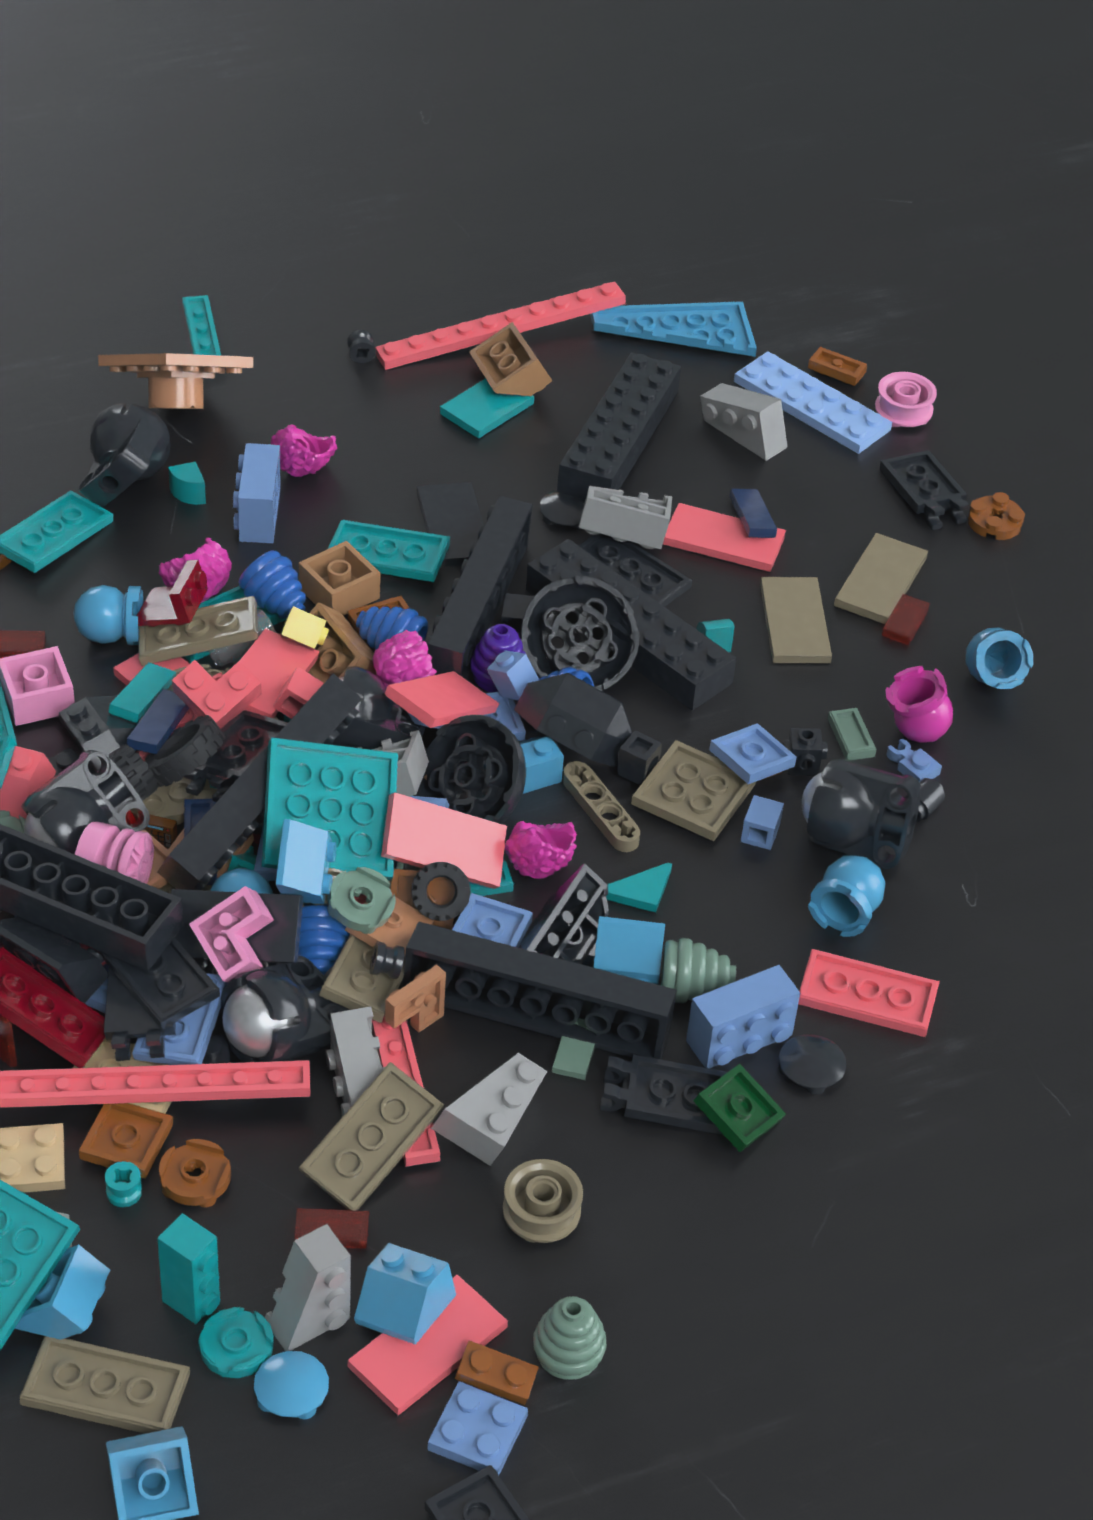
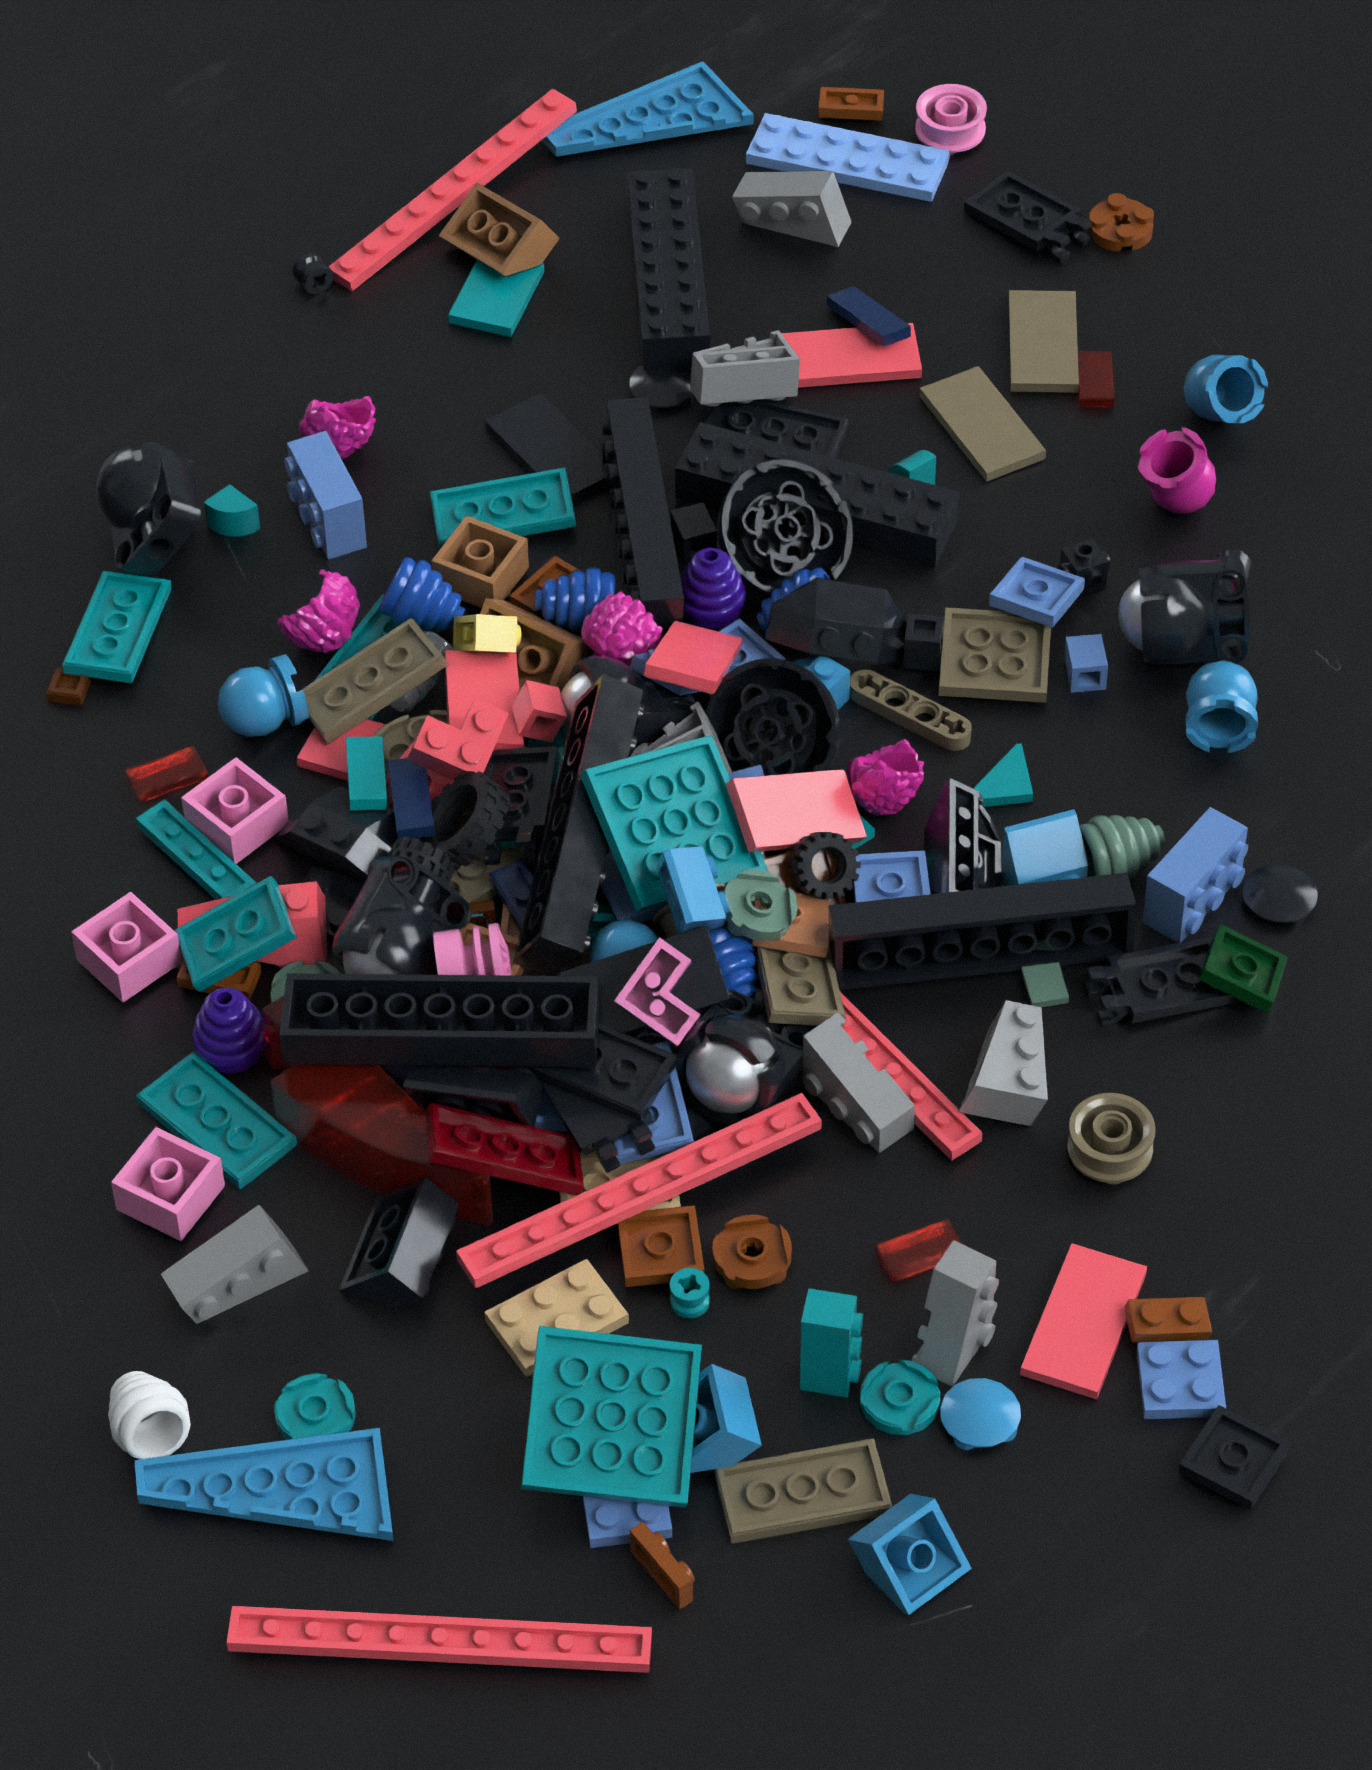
camera: 20 degrees left, 5 degrees up
(175, 379) = (142, 388): nougat piece -> none
(177, 602) = (329, 657): dark red bracket -> none
(200, 325) = (113, 320): teal tile -> none
(371, 1138) = (910, 1144): dark tan tile -> none
(387, 960) = (817, 958): black wheel -> none
(404, 1293) = (1039, 1281): dark azure slope -> none
(419, 1000) = (871, 988): nougat plate -> none
(511, 674) = (744, 601): medium blue brick -> none
(570, 1339) = (1220, 1258): sand green piece -> none
(851, 734) = (1114, 530): sand green tile -> none
(868, 992) = (1294, 800): coral tile -> none
(913, 763) = (1197, 540): medium blue plate -> none

